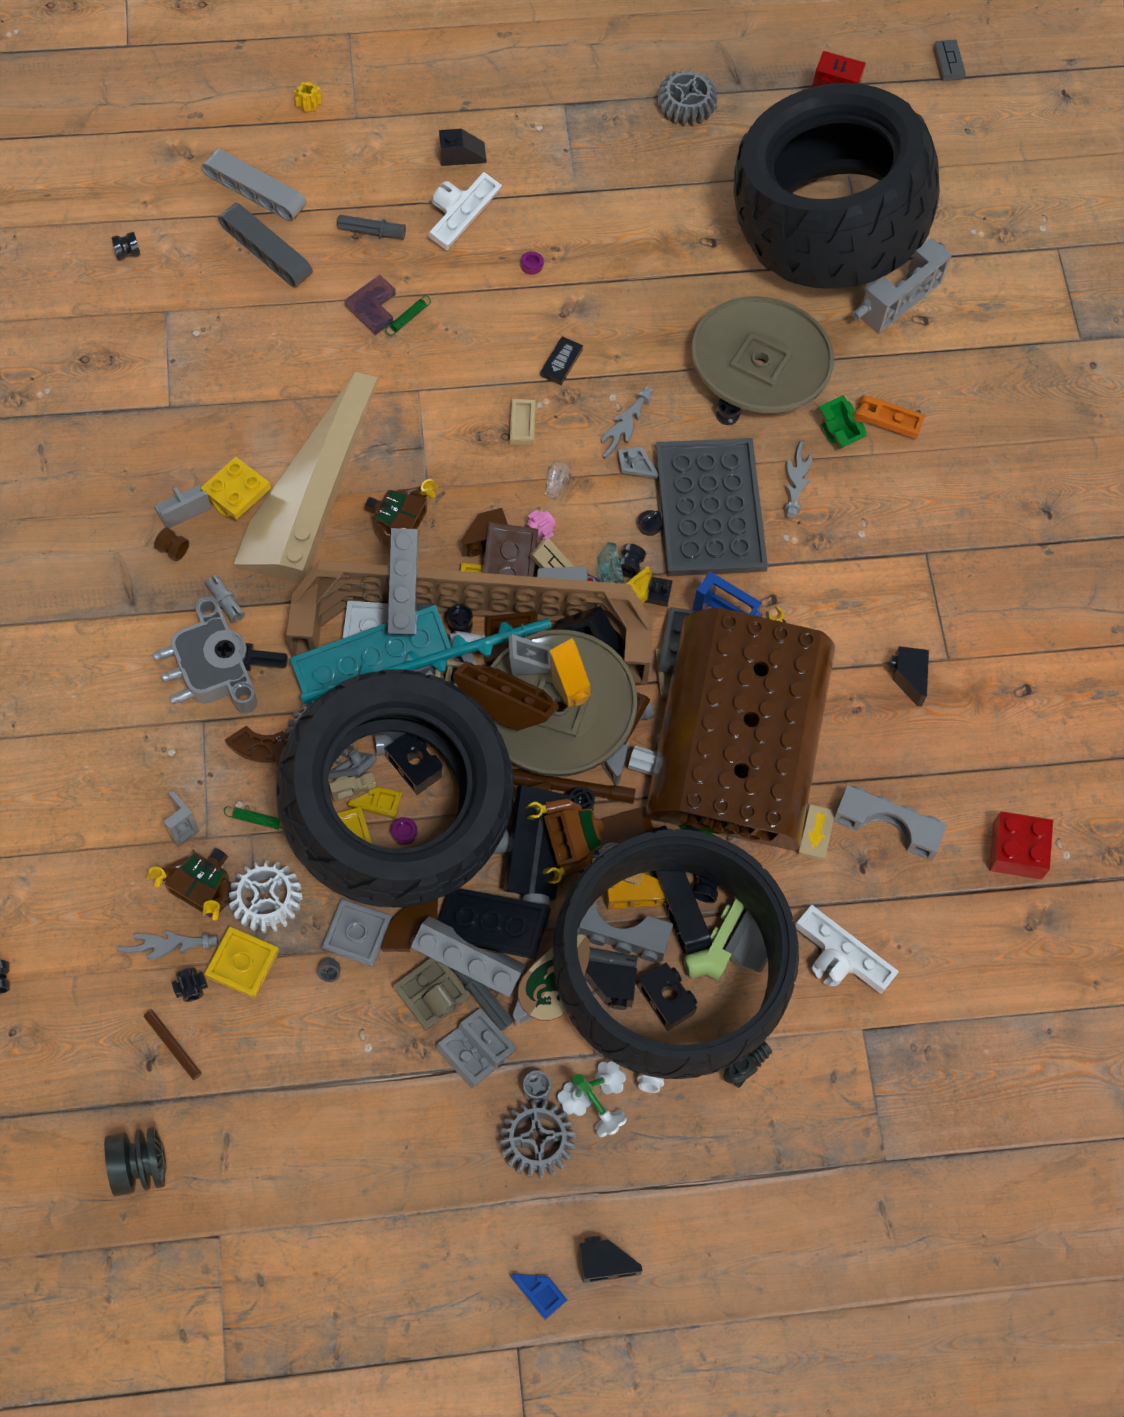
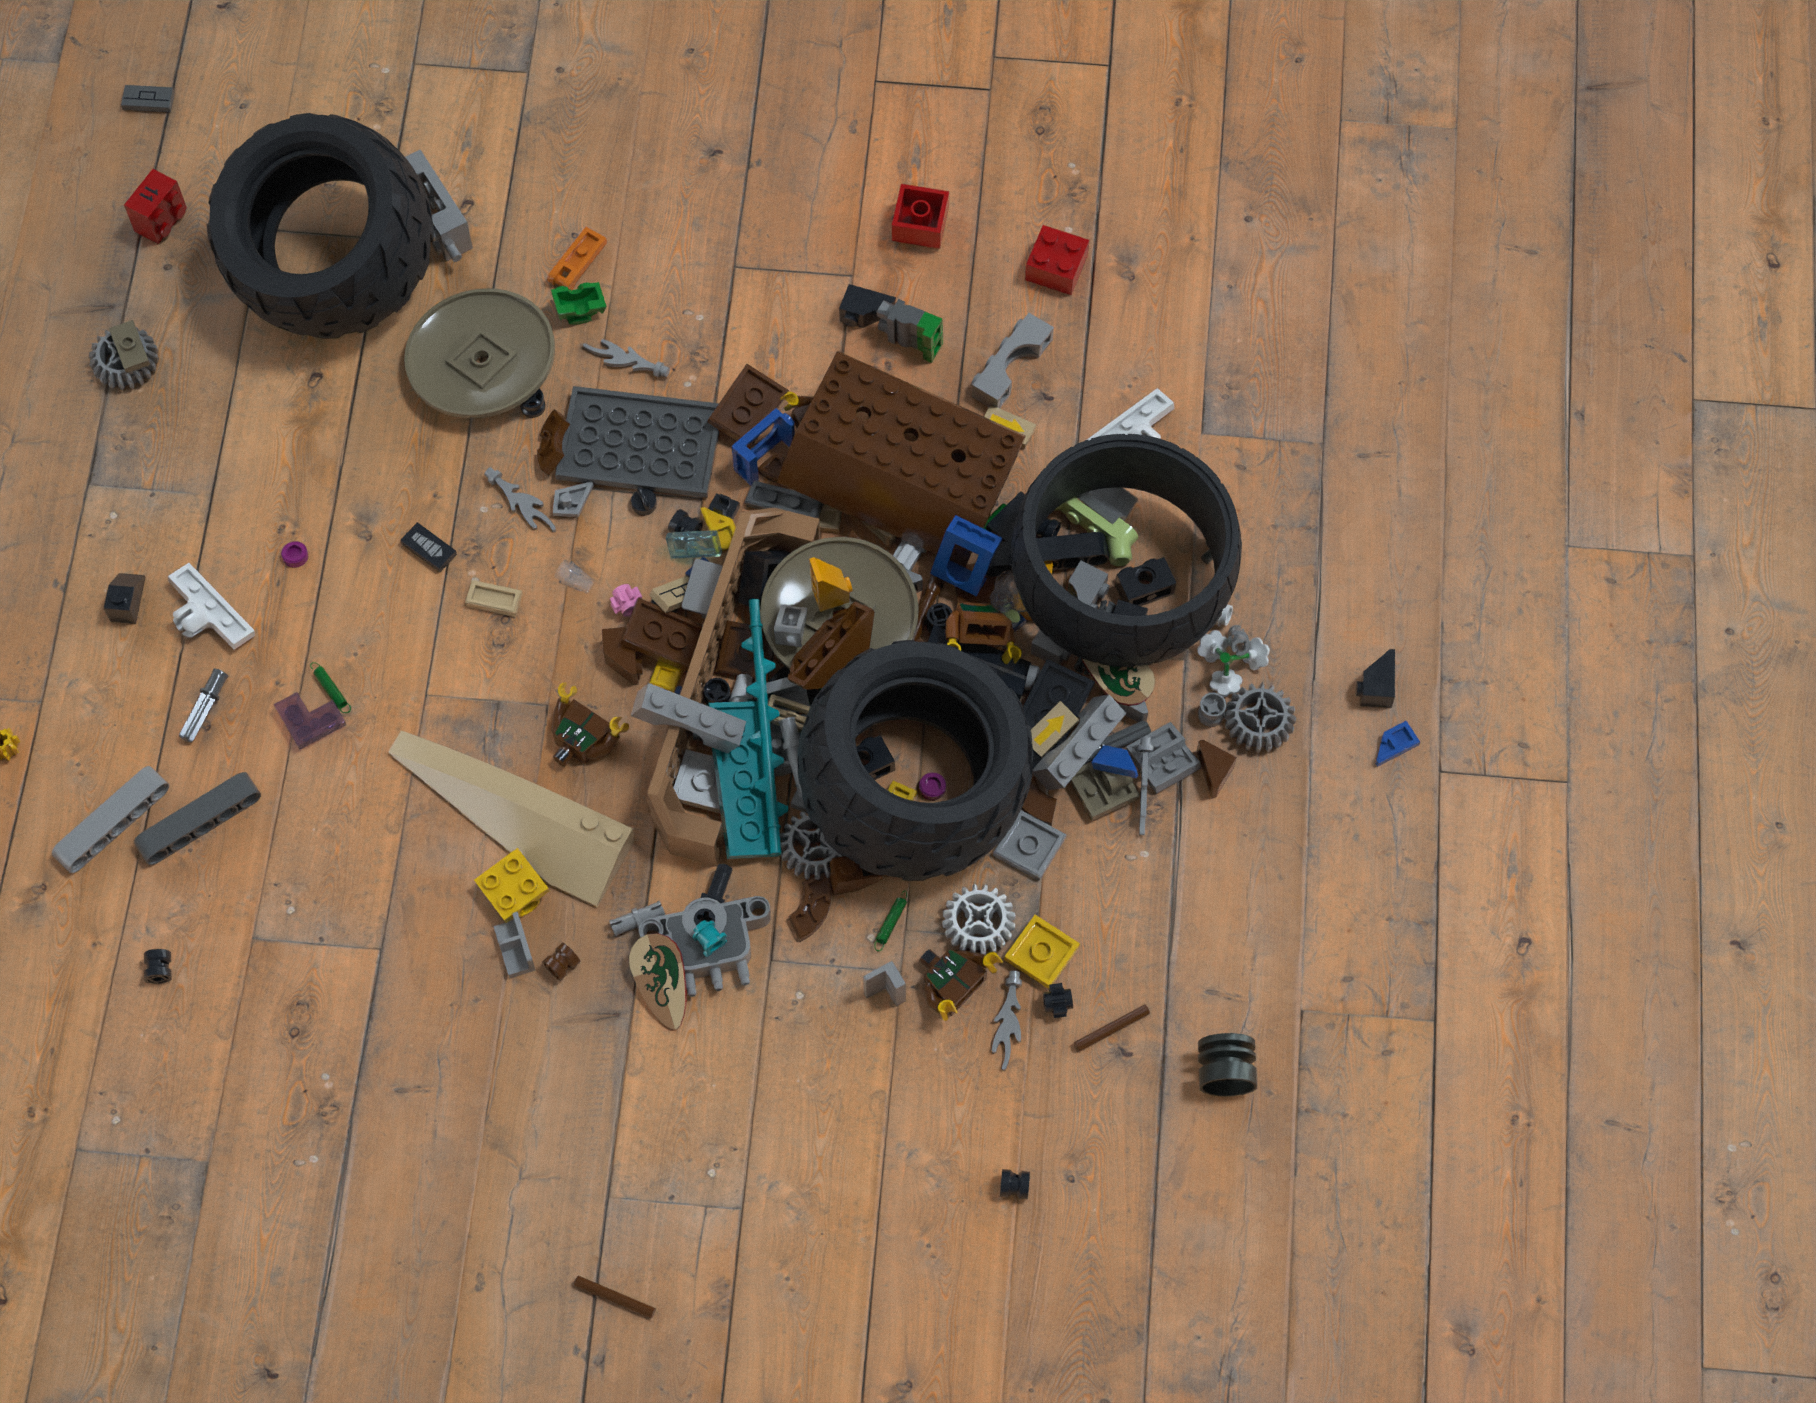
camera: 75 degrees left, 0 degrees up
(163, 625) = (660, 977): none -> shield
(200, 652) = (709, 937): none -> teal brick
(333, 971) = (1064, 872): dark grey hinge -> none
(435, 1030) = (1144, 747): none -> light grey piece
(450, 993) = (1115, 761): none -> blue tile
(472, 1101) = (1215, 766): none -> reddish brown slope
(476, 925) = (1052, 728): none -> tan tile
(617, 1099) = (1240, 638): none -> light grey pin
(645, 804) = (974, 539): none -> blue panel
(692, 92) = (129, 346): none -> dark tan plate
(701, 432) = (551, 445): none -> reddish brown tile
(774, 587) = (746, 403): none -> reddish brown tile
(896, 718) = (911, 328): none -> dark grey hips
(1029, 704) = (920, 216): none -> red brick

